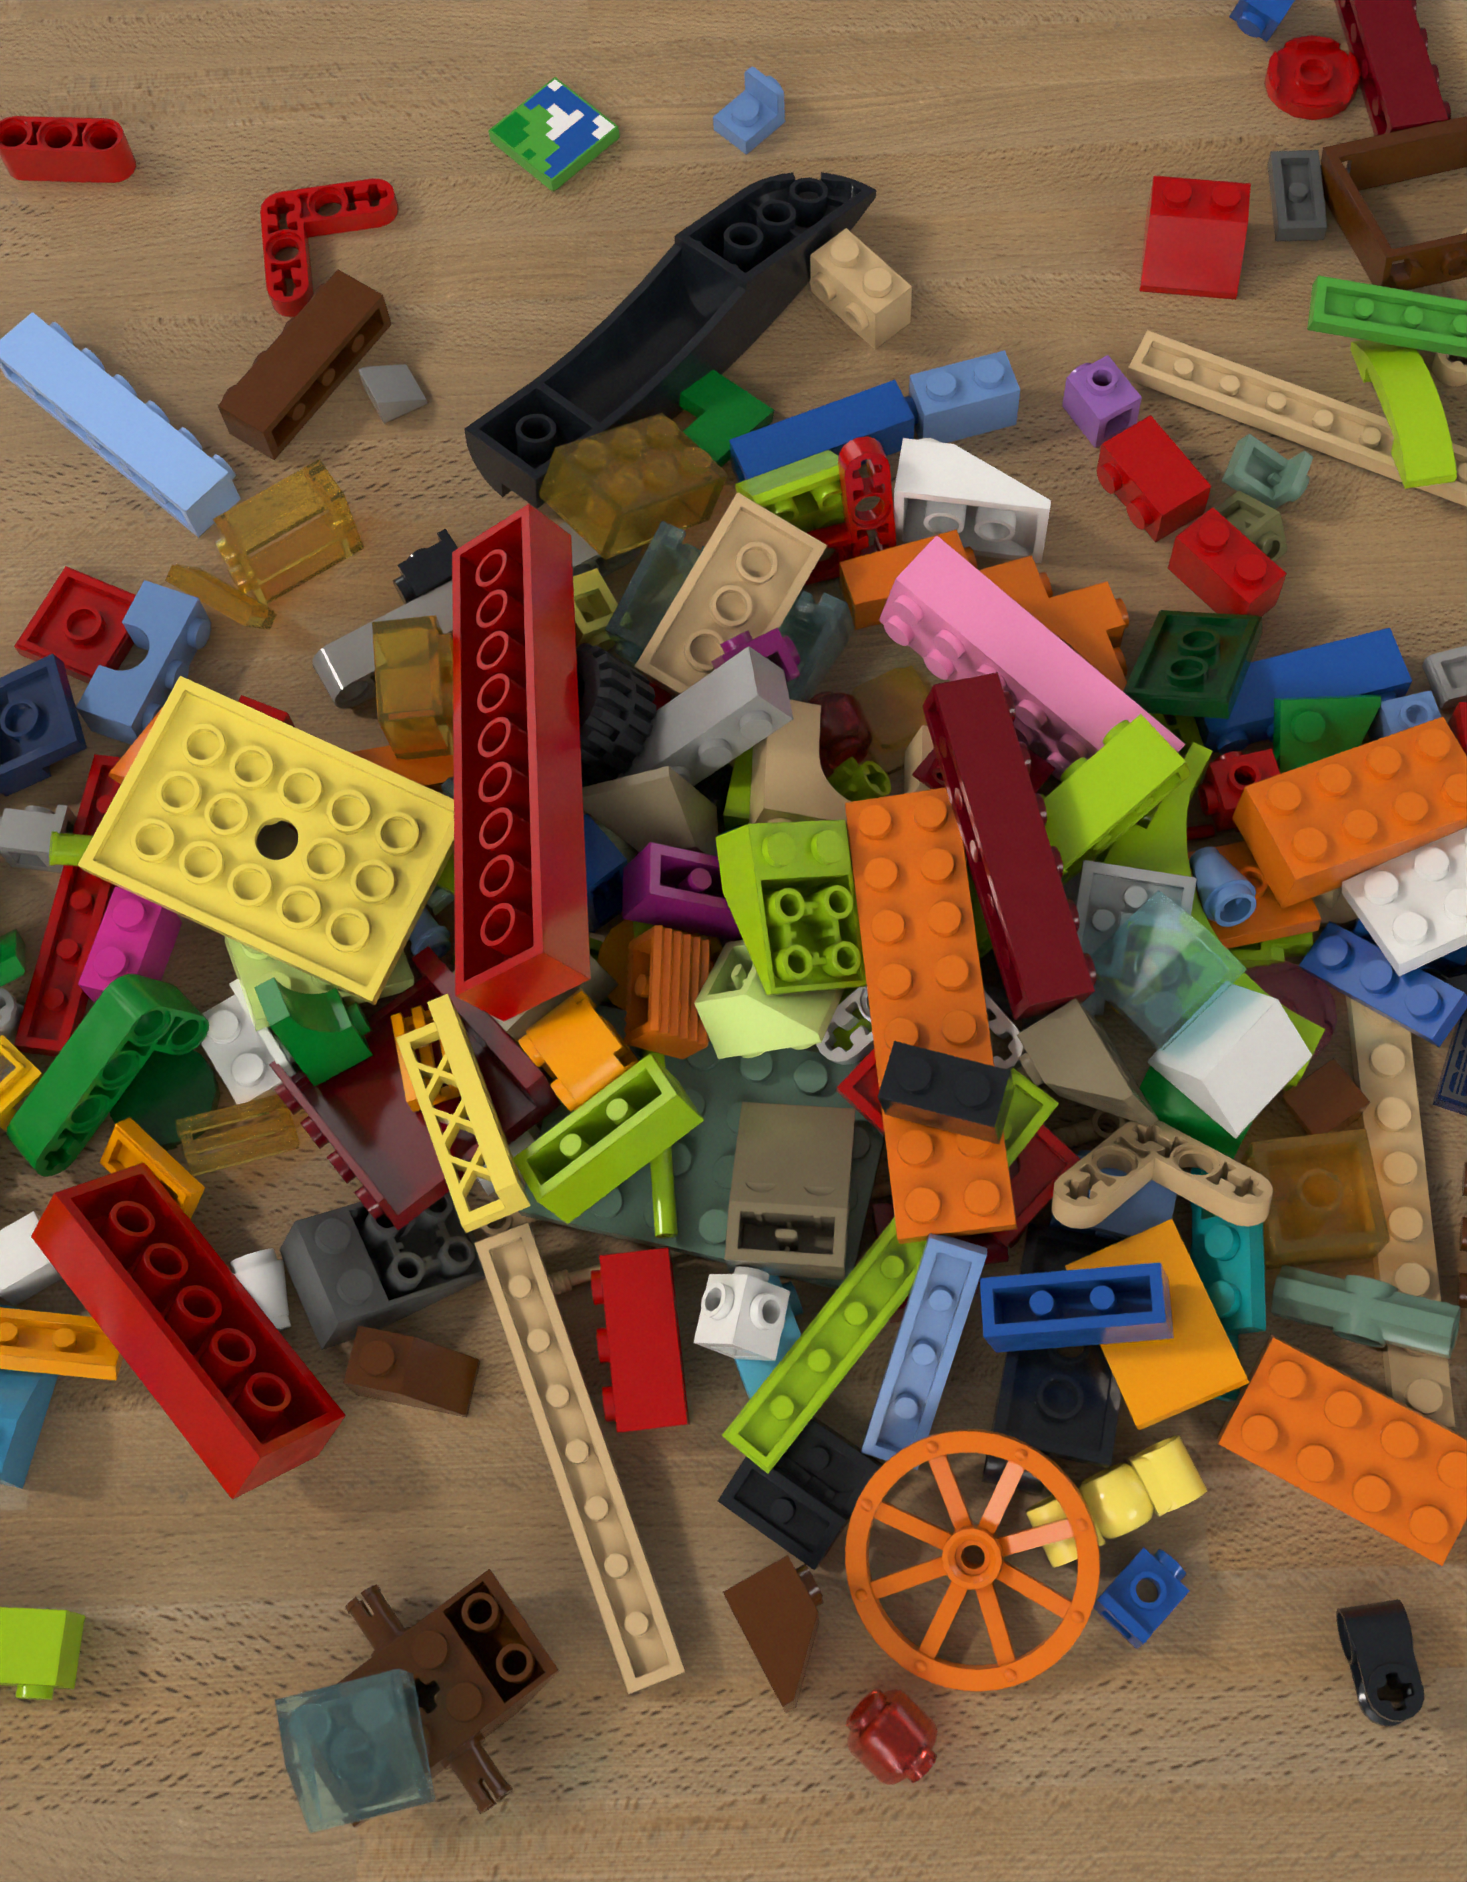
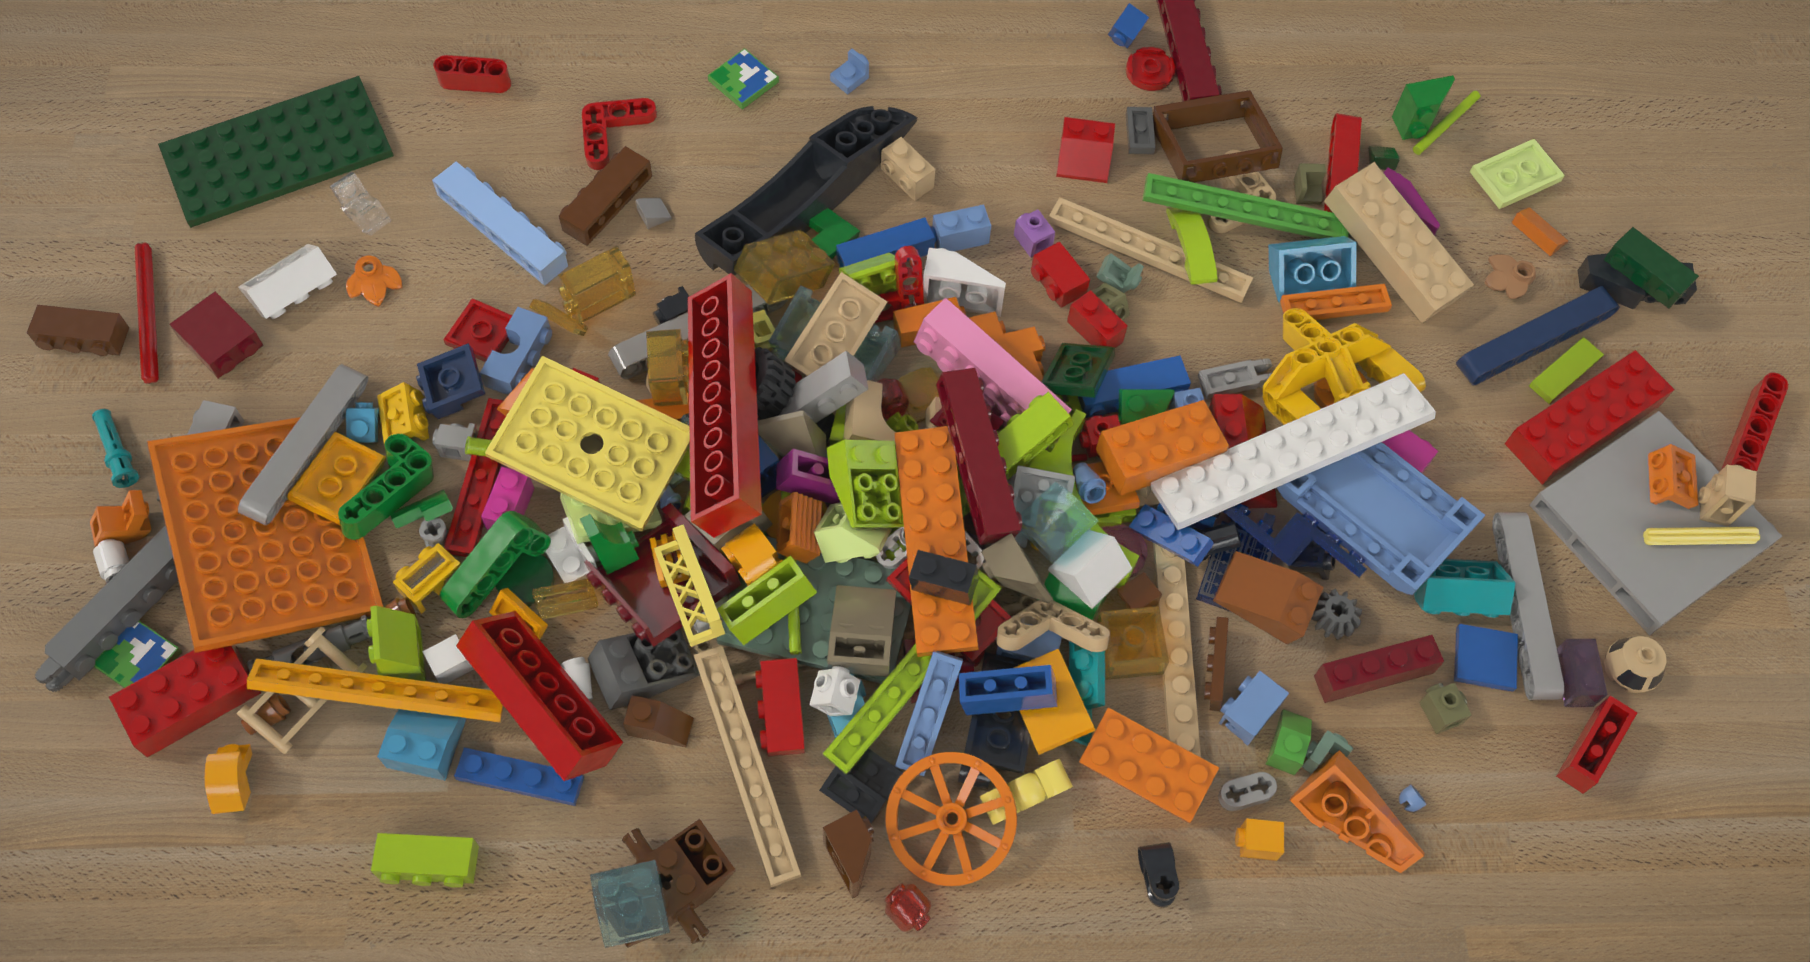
camera: 10 degrees left, 5 degrees down
(148, 1481) = (517, 776): none -> blue plate
(770, 645) = (857, 351): magenta bracket -> none
(1123, 1607) = (1034, 849): blue brick -> none
(1366, 1311) = (1156, 698): sand green piece -> none

